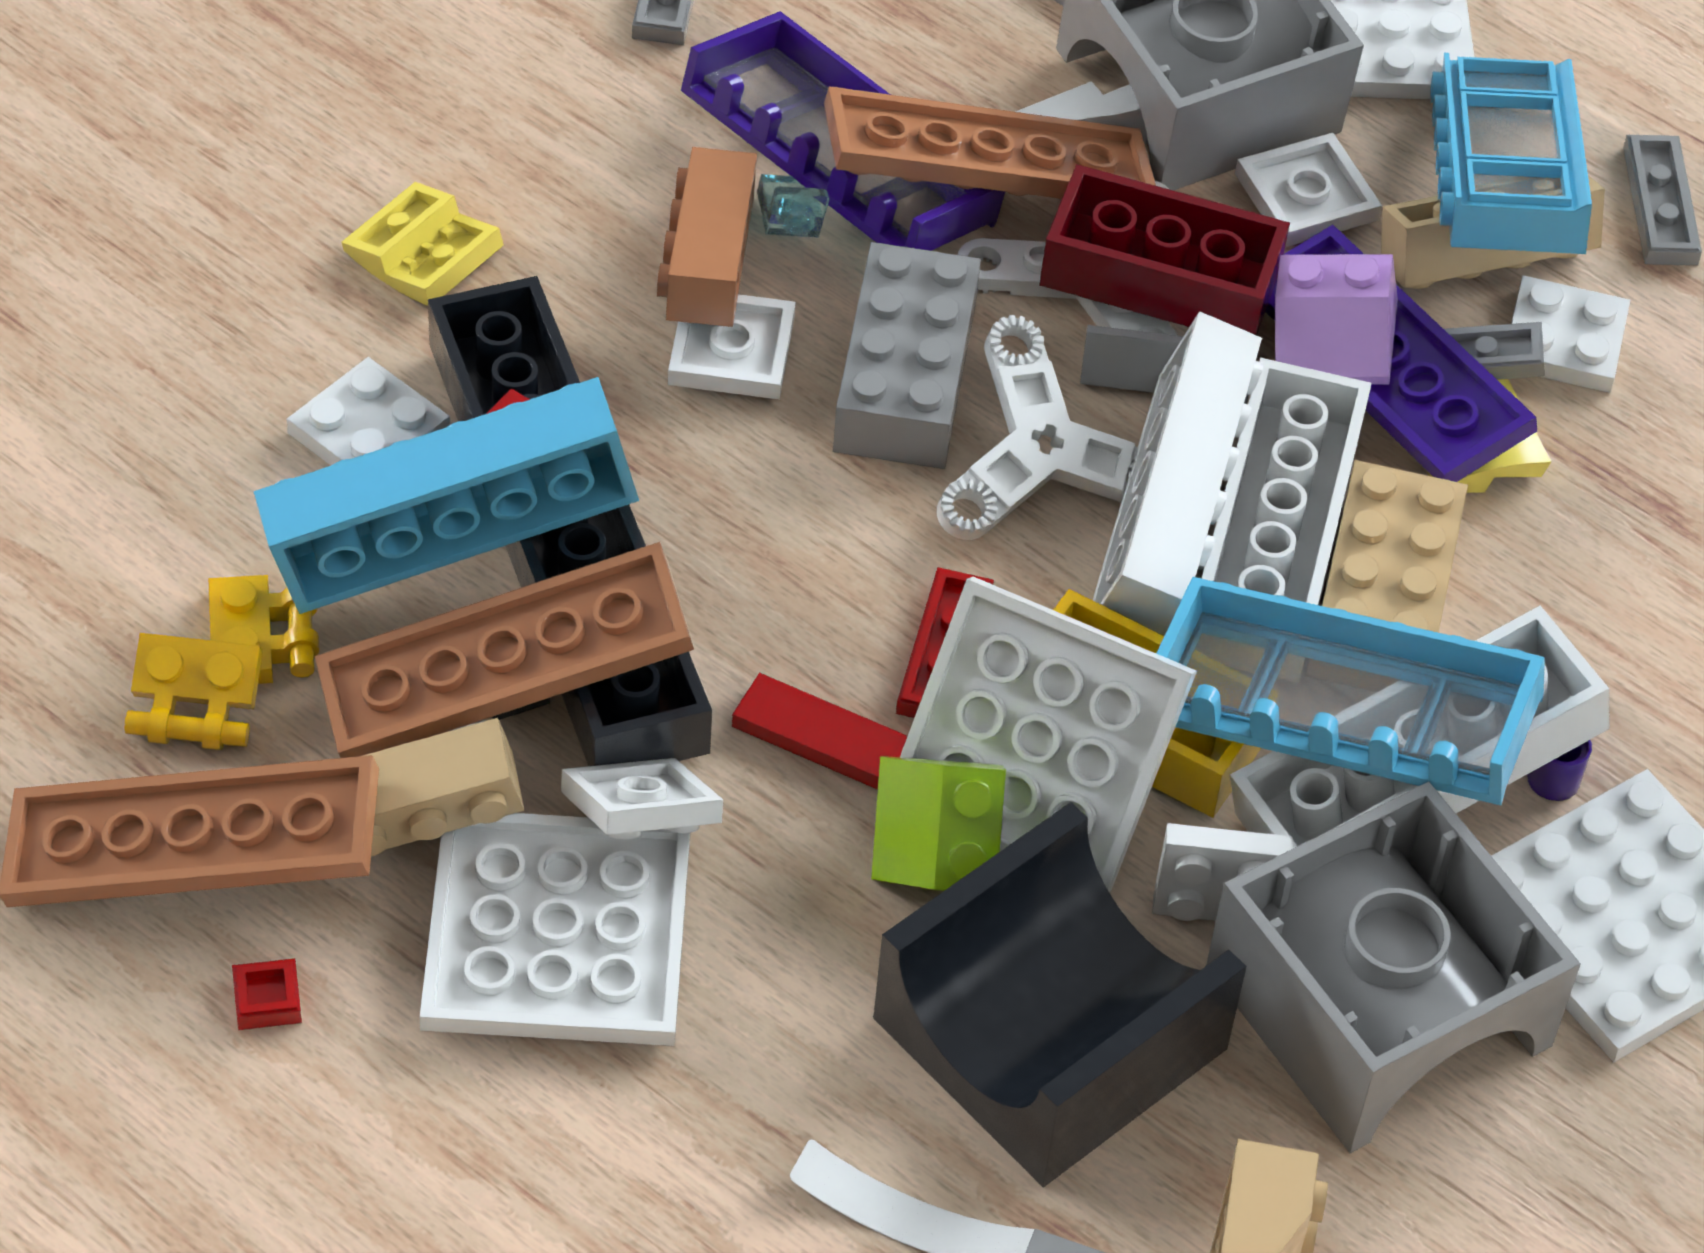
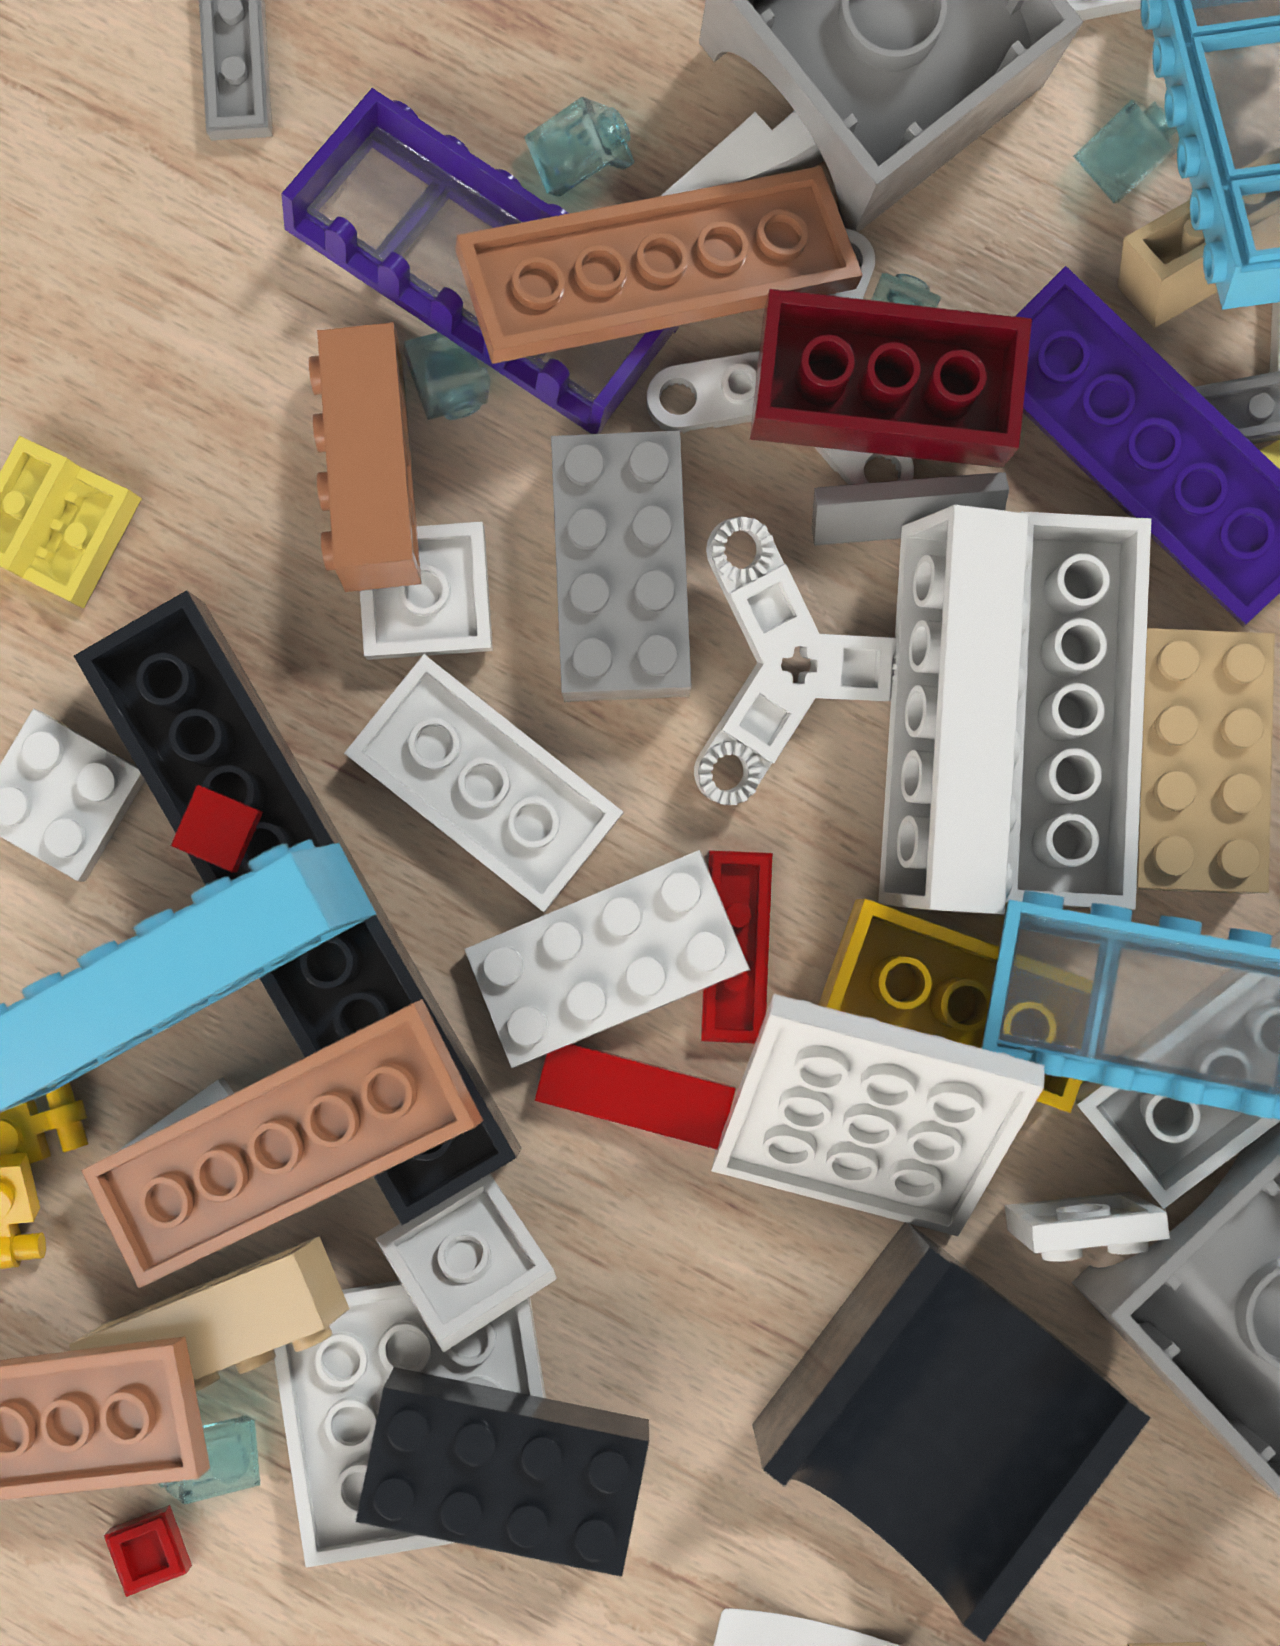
camera: 10 degrees left, 35 degrees up
(350, 920) = (232, 1462): none -> clear light blue bracket
(637, 947) = (504, 1471): none -> black brick
(749, 482) = (484, 783): none -> white plate
(825, 621) = (606, 959): none -> white plate
(935, 820) = (785, 1226): lime slope -> none
(942, 80) = (579, 145): none -> clear light blue bracket
(1309, 187) = (1023, 200): white plate -> none
(1337, 314) = (1097, 432): lavender slope -> none
(1401, 170) = (1128, 148): none -> clear light blue bracket

